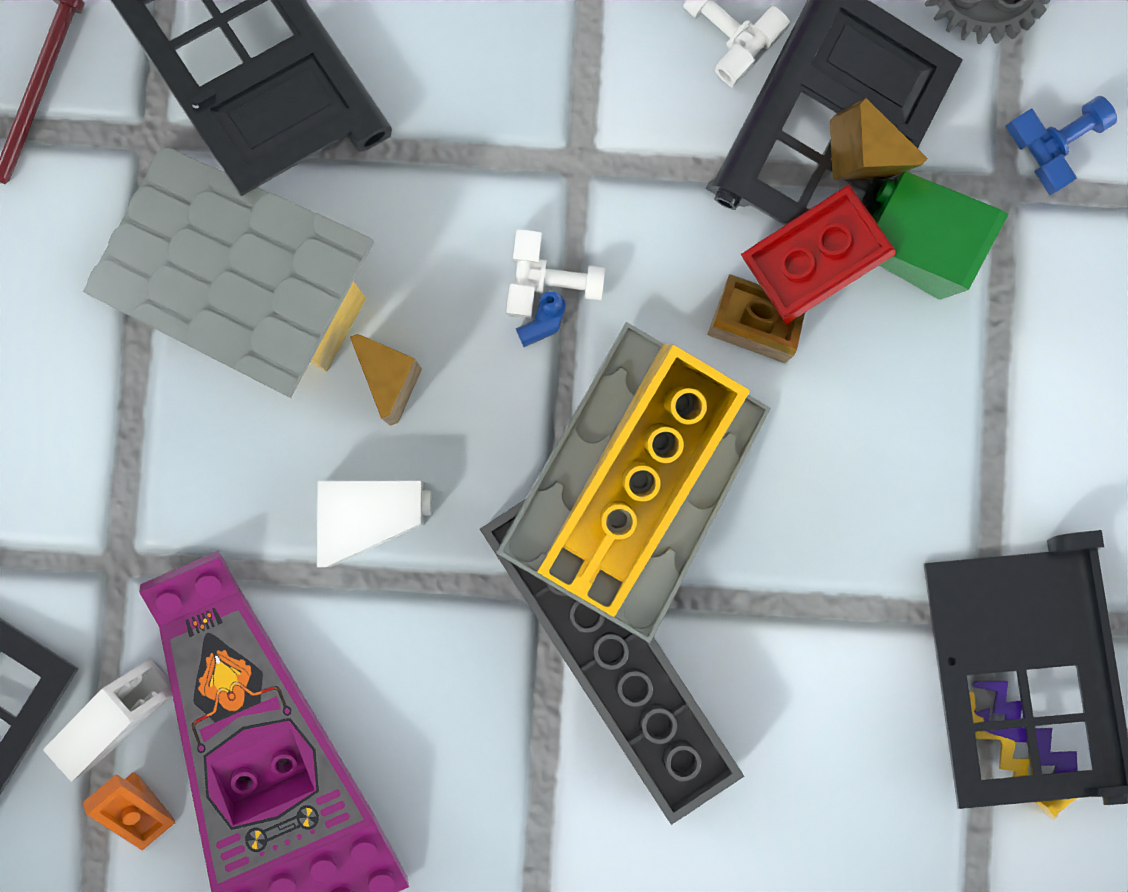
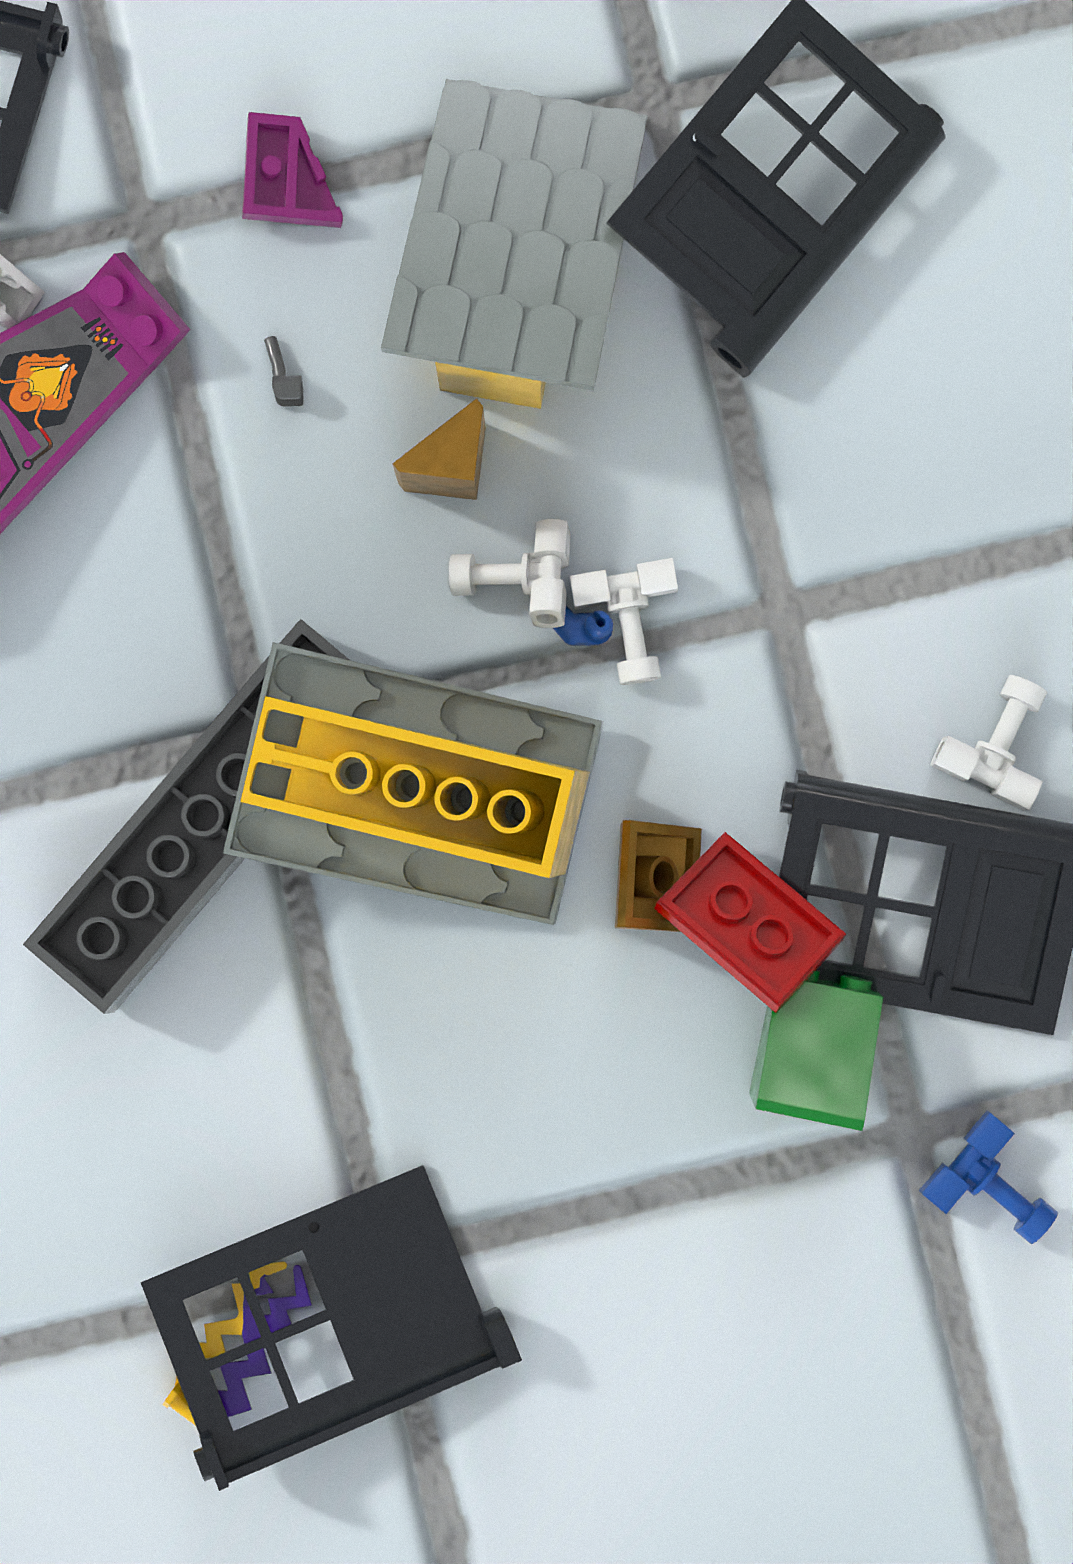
camera: 80 degrees right, 0 degrees up
(118, 440) = (284, 176): none -> magenta wing
(289, 489) = (287, 389): none -> dark grey hand
(365, 515) = (282, 485): white slope -> none
(496, 335) = (537, 573): none -> white bar
(869, 145) = (896, 942): pearl gold slope -> none

